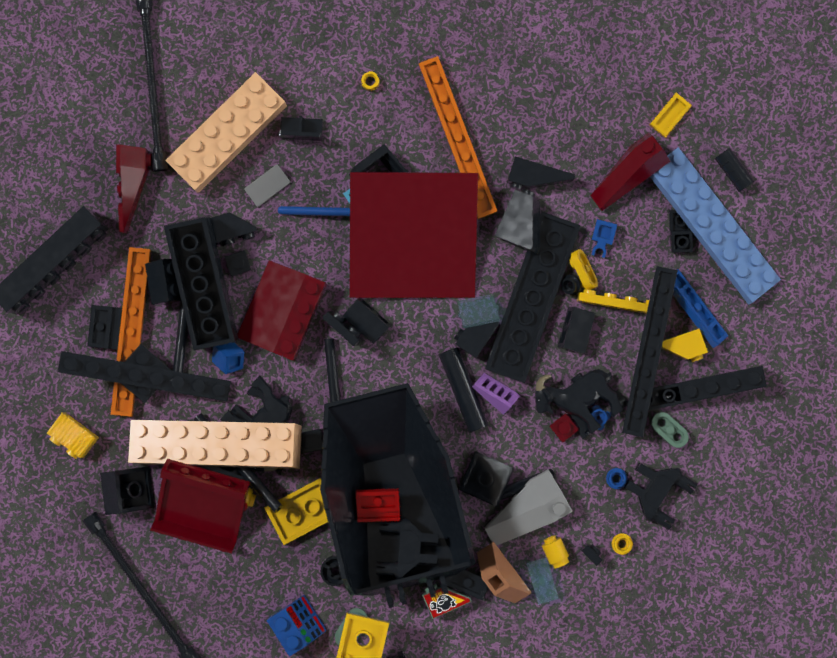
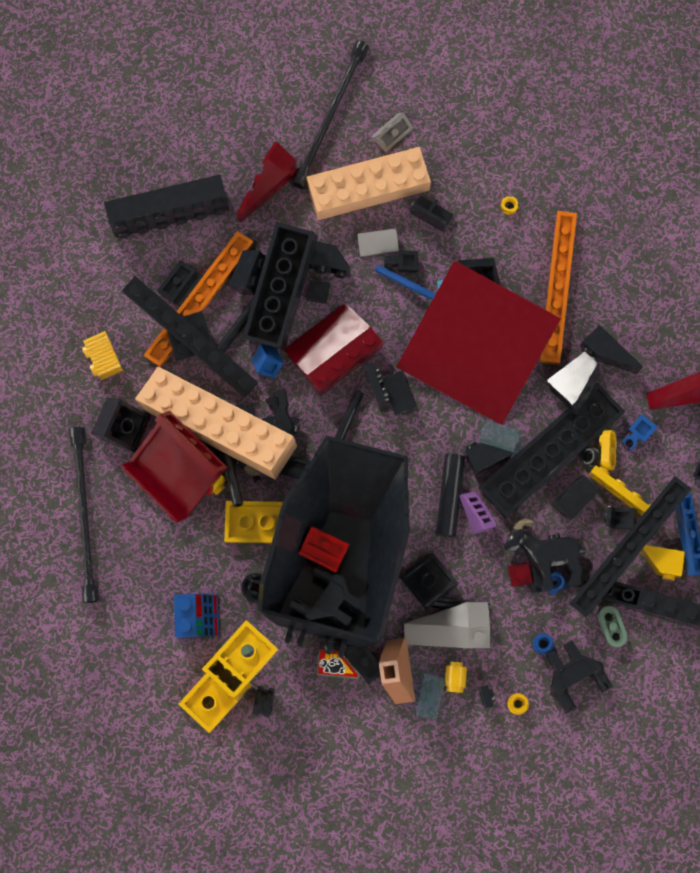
camera: 30 degrees right, 10 degrees down
(220, 66) = (392, 131): none -> light grey slope
(303, 189) = (406, 261): none -> black plate
(626, 327) = (620, 517): none -> black bracket

